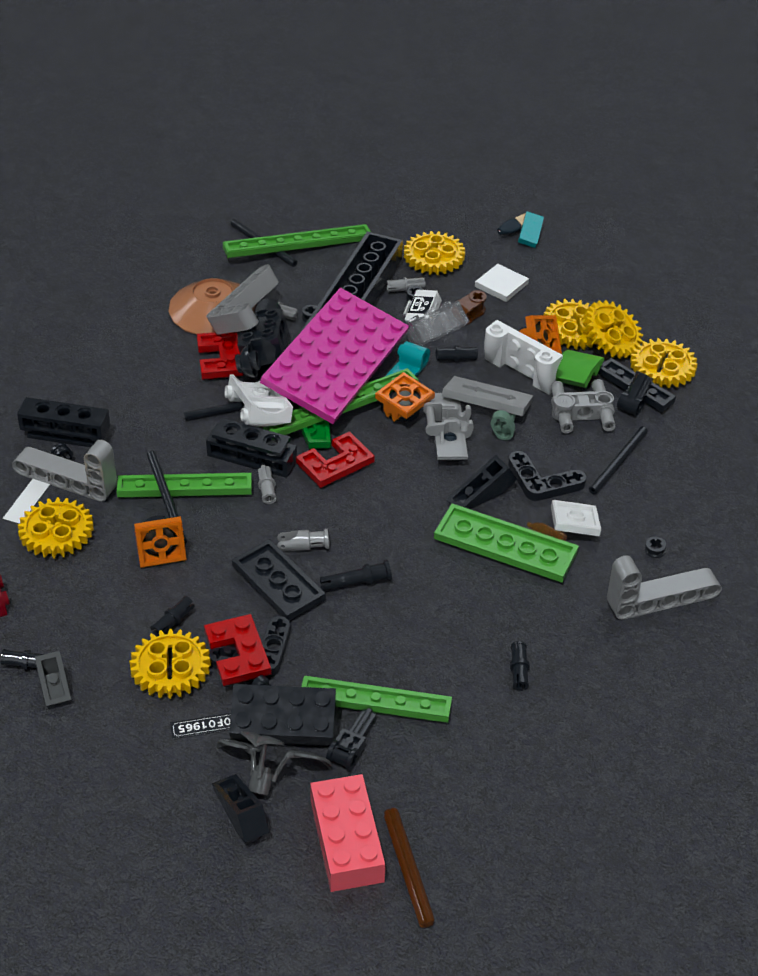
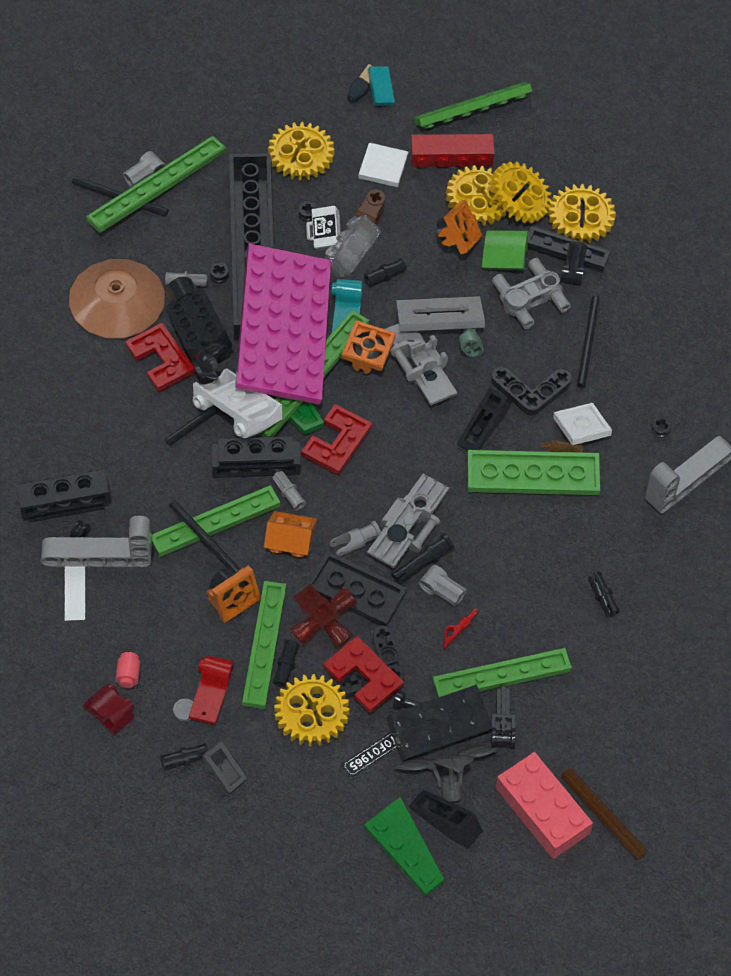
camera: 25 degrees left, 15 degrees up
(25, 571) = (128, 670): none -> coral brick
(55, 527) = (122, 596): yellow gear -> none
(56, 624) = (182, 709): none -> light grey piece
(101, 606) = (212, 688): none -> red door
(161, 596) = (264, 645): none -> bright green plate
(184, 816) = (404, 845): none -> green wing
(230, 587) = (323, 615): none -> clear red brick
(236, 310) = (150, 312): light grey beam -> none
(244, 515) = (290, 533): none -> orange slope
(300, 224) = (147, 165): none -> light grey piece
(355, 646) = (457, 629): none -> red hand
(357, 533) = (402, 516): none -> light grey piece
(359, 600) = (437, 582): none -> light grey piece
(404, 284) = (292, 202): light grey axle -> none
(522, 353) = (455, 255): white piece -> none
(566, 285) = (452, 150): none -> red brick
(613, 263) = (465, 107): none -> bright green plate

